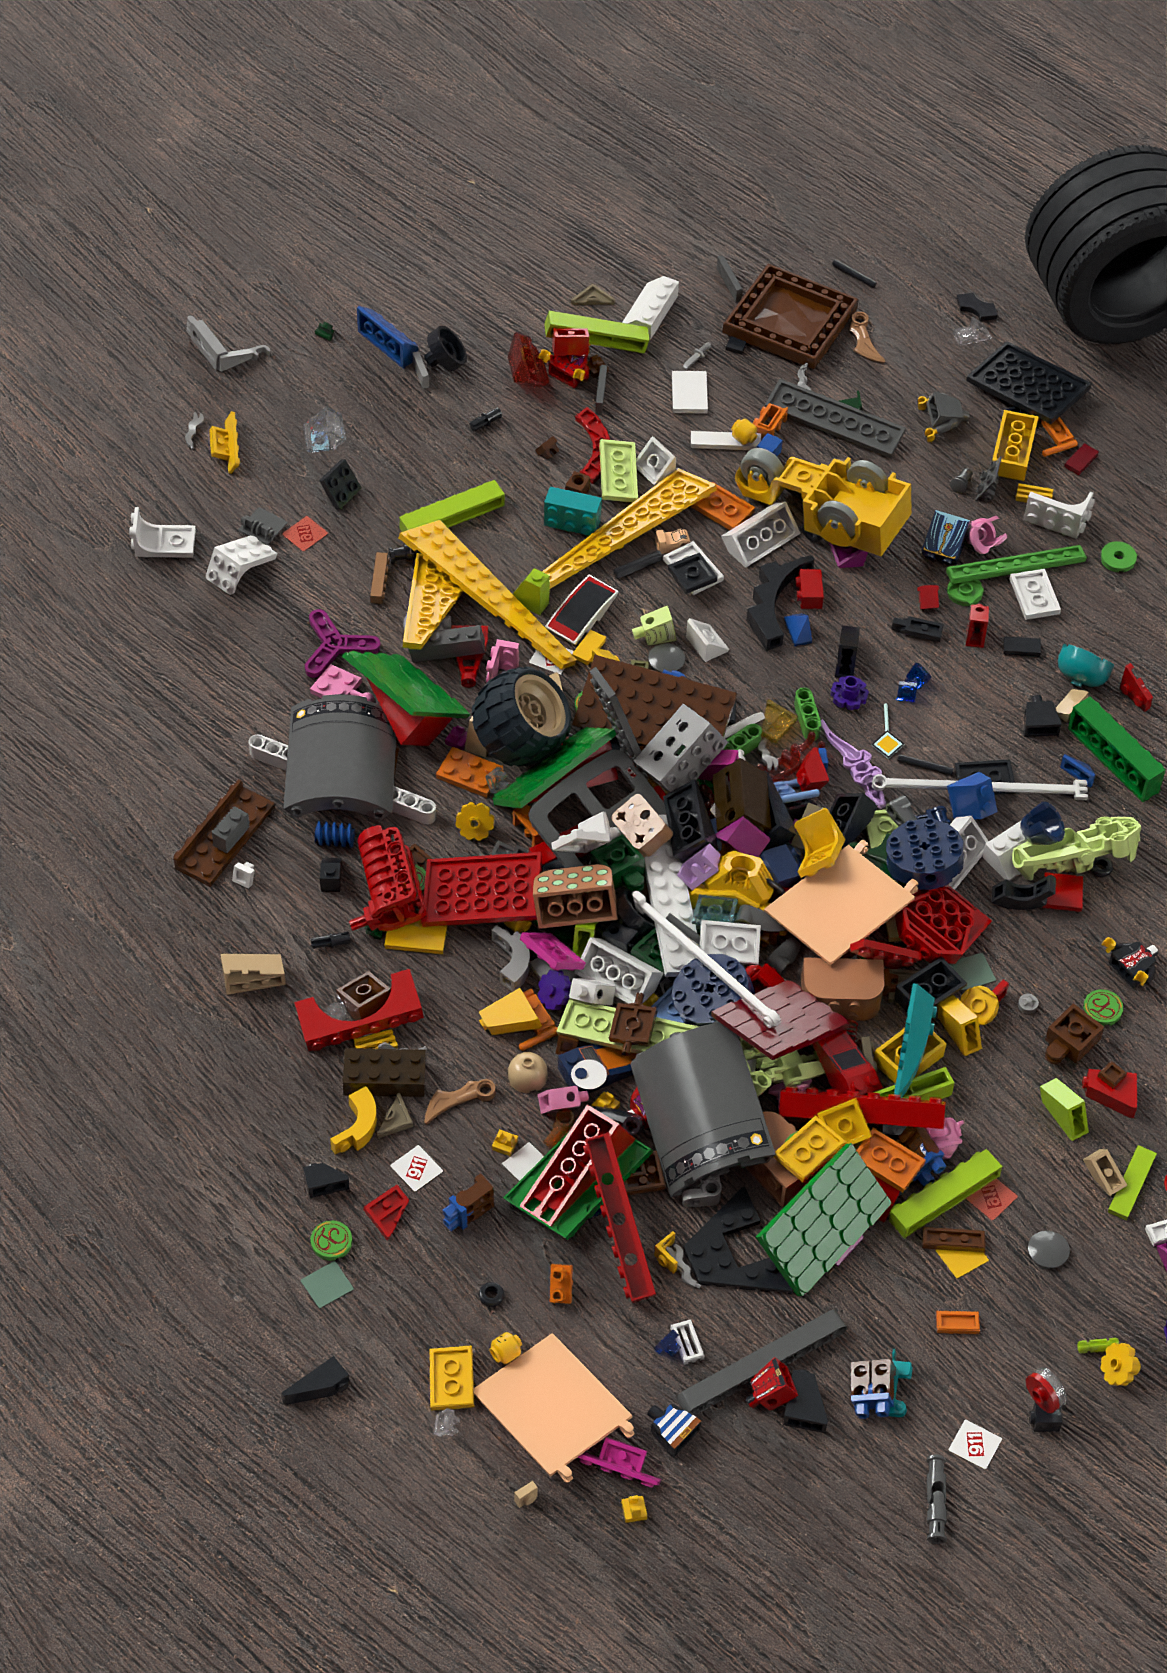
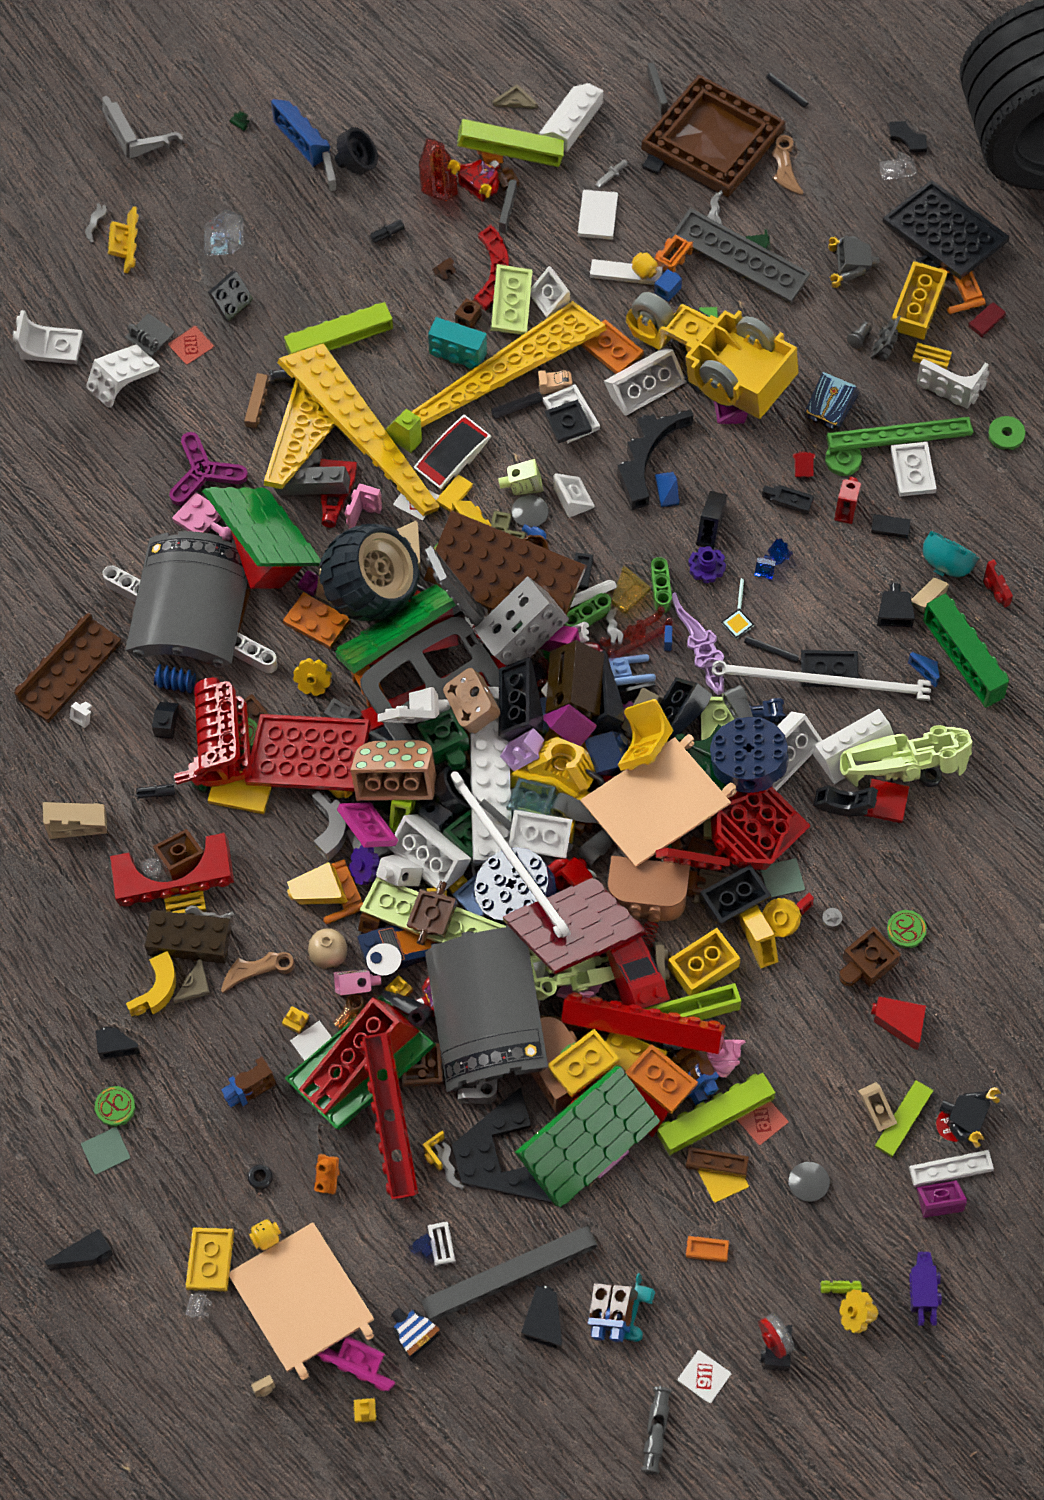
camera: 10 degrees right, 10 degrees up
(230, 829) = (72, 667): dark grey brick -> none
(387, 1210) = (172, 1080): red wing -> none
(416, 1168) = (207, 1038): white sticker -> none
(497, 780) = (341, 633): clear tile -> none
(570, 341) = (481, 154): red brick -> none
(772, 1386) = (514, 1300): red torso -> none
(810, 588) = (685, 446): red brick -> none
(812, 772) = (654, 650): red slope -> none
(847, 1121) = (624, 1038): yellow plate -> none
(915, 1037) = (709, 950): teal wedge -> none
(972, 797) = (810, 692): blue slope -> none
(983, 535) = (870, 401): bright pink helmet -> none
(1043, 825) = (874, 732): dark blue hair -> none
(1065, 1107) = (849, 1035): lime slope -> none
(1112, 1074) = (900, 1005): reddish brown tile -> none
(1132, 961) = (944, 883): torso -> none

